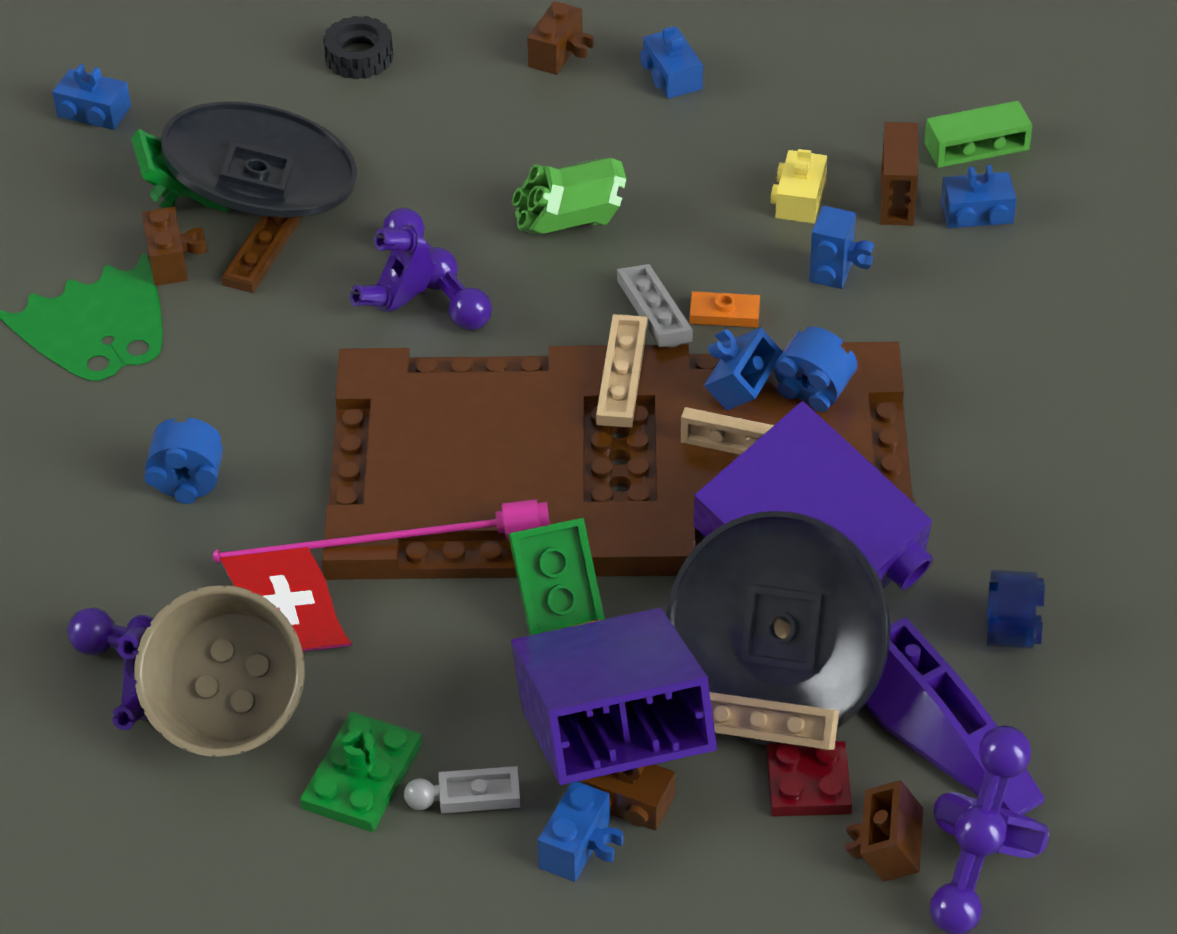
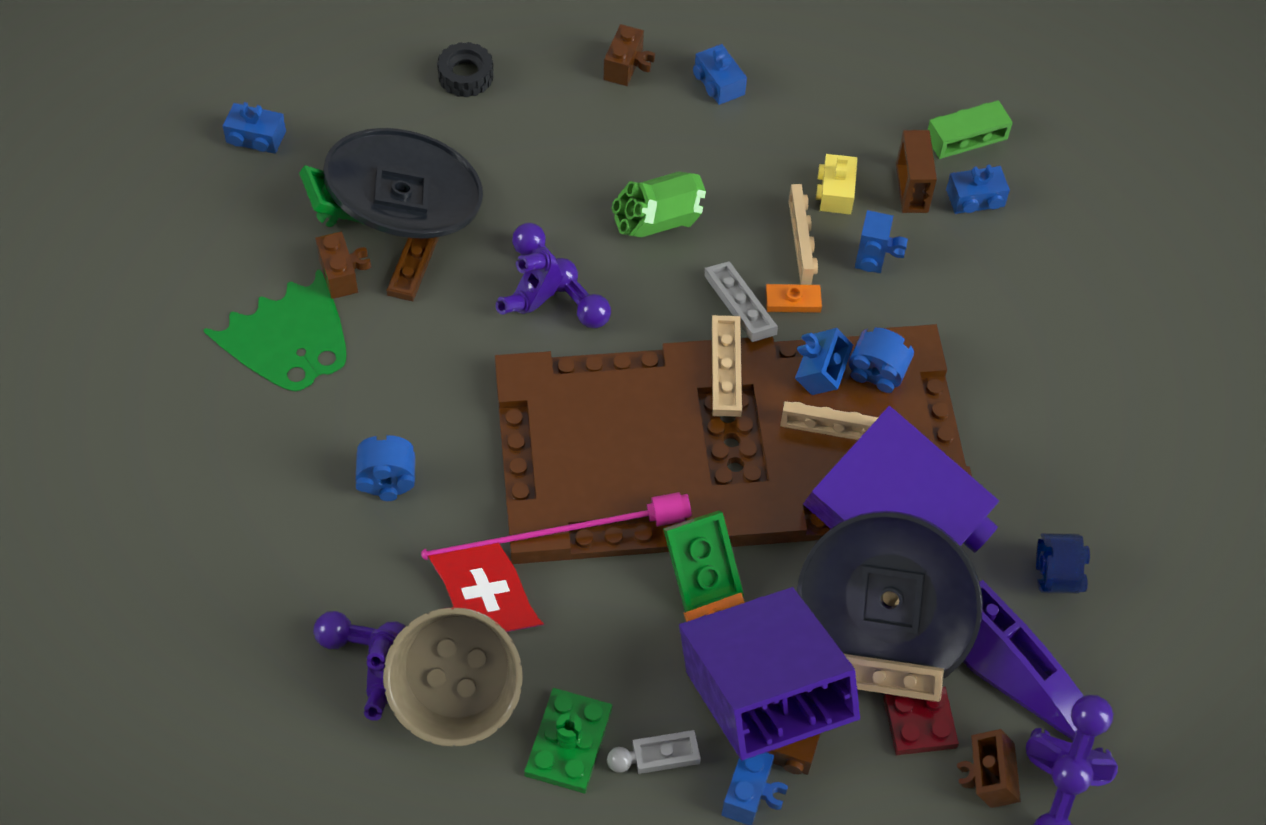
camera: 10 degrees left, 10 degrees up
(747, 228) = (803, 242): none -> tan plate

